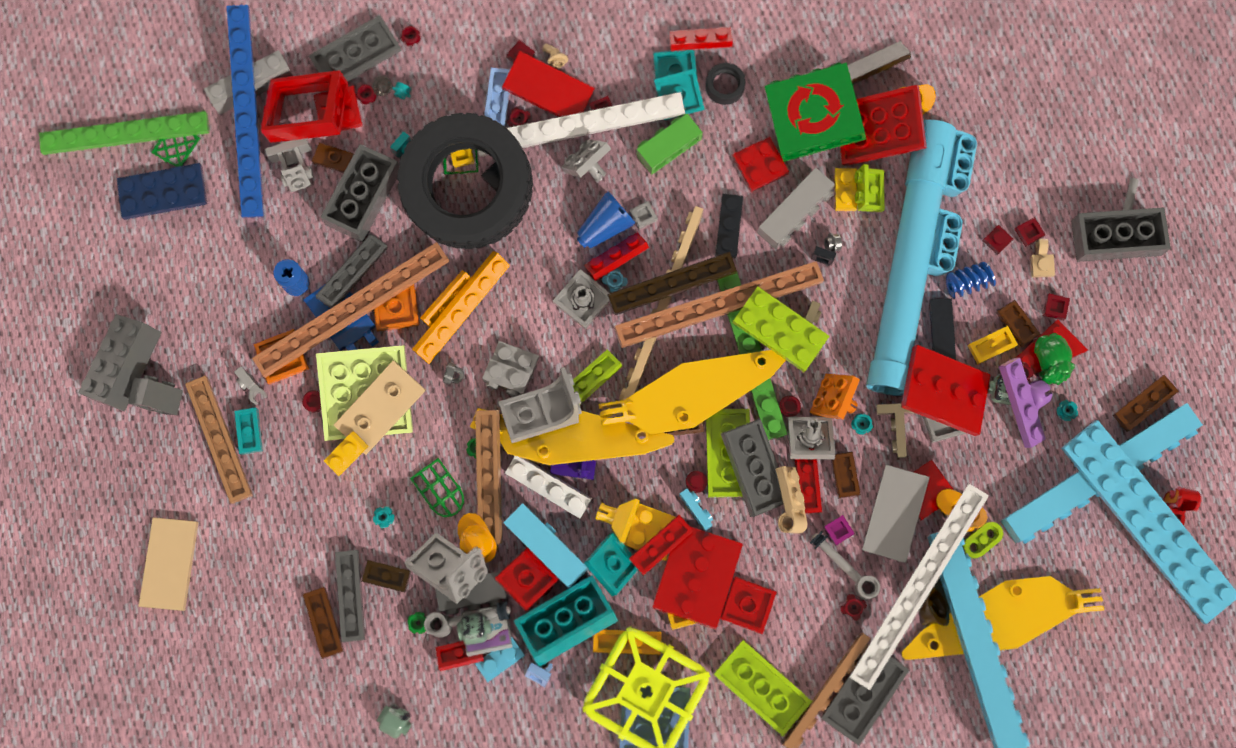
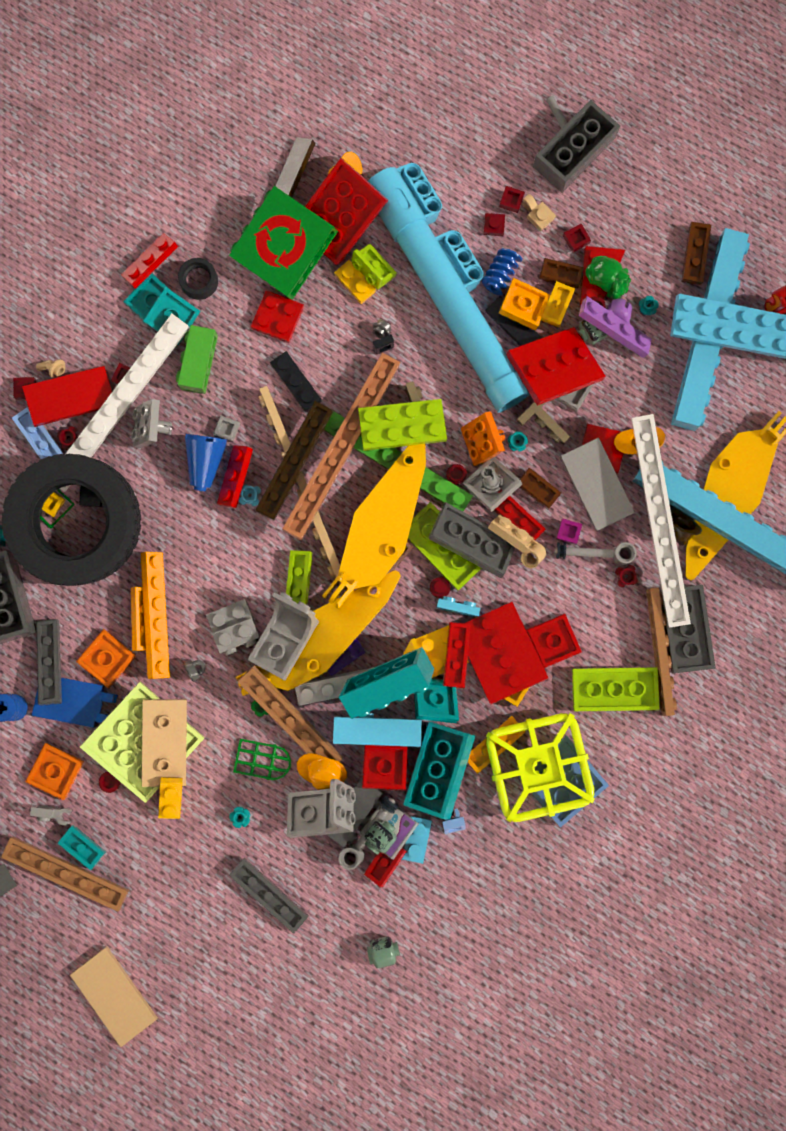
camera: 45 degrees left, 5 degrees up
(323, 623) = (267, 932): reddish brown plate -> none
(350, 310) = (74, 692): nougat plate -> none
(386, 576) = (281, 857): dark brown plate -> none
(413, 627) = (334, 874): green plate -> none
(582, 296) = (227, 521): light grey plate -> none
(586, 514) = (387, 683): none -> teal brick
(796, 208) = (332, 327): light grey brick -> none
(965, 321) = (524, 304): none -> light orange plate
(982, 541) = (672, 450): lime plate -> none

